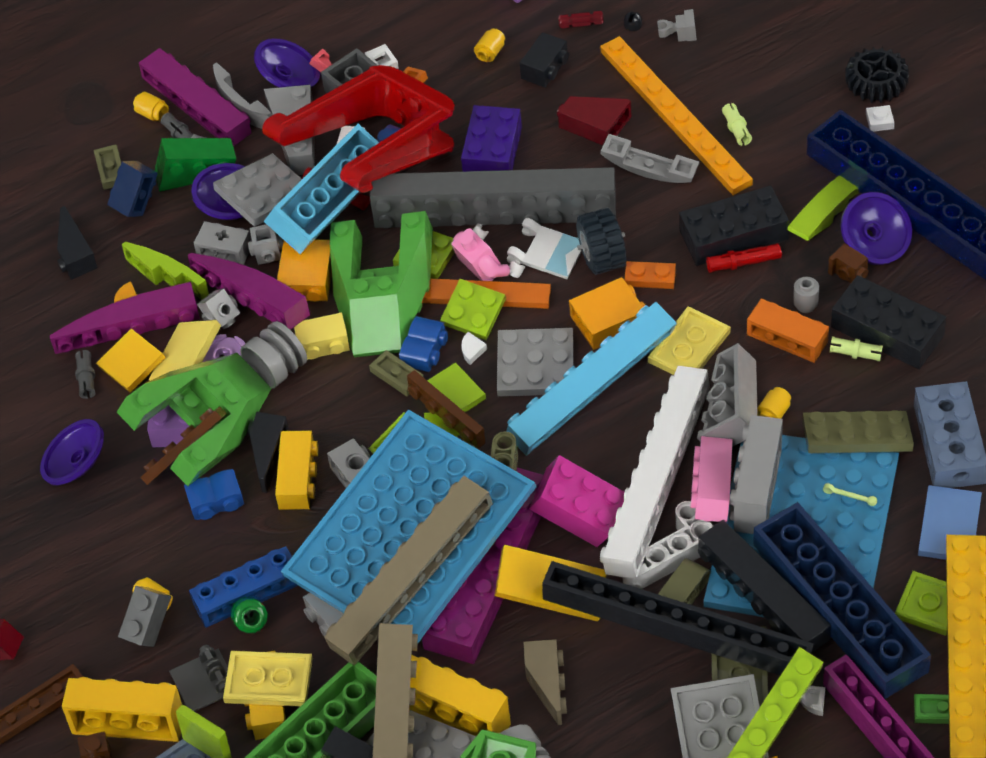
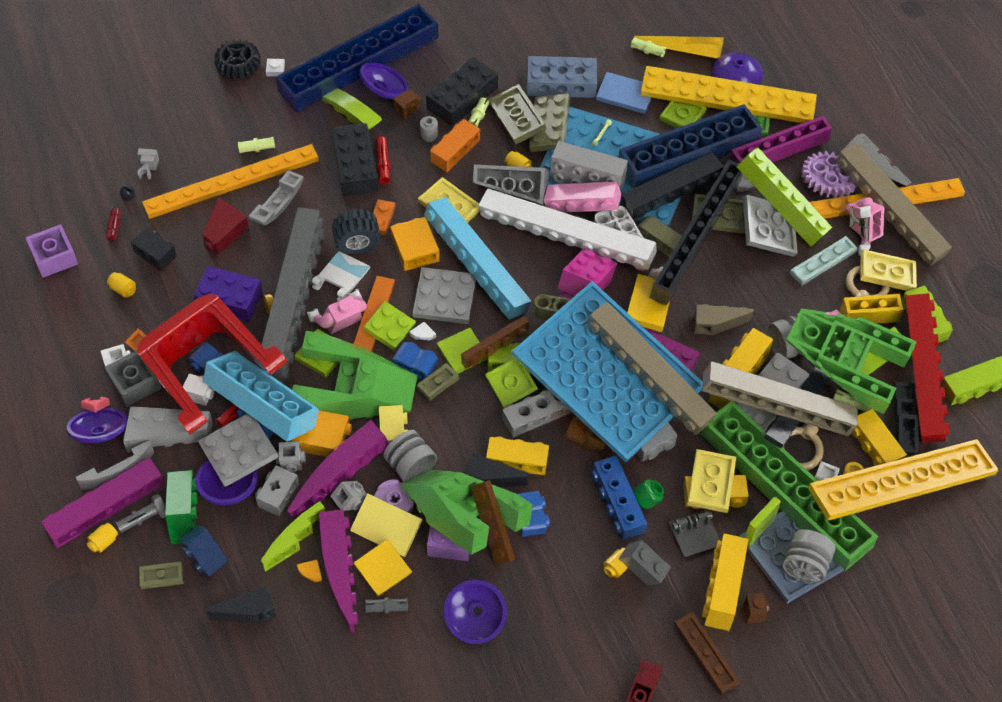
camera: 90 degrees left, 5 degrees up
(857, 387) = (517, 114): none -> plate

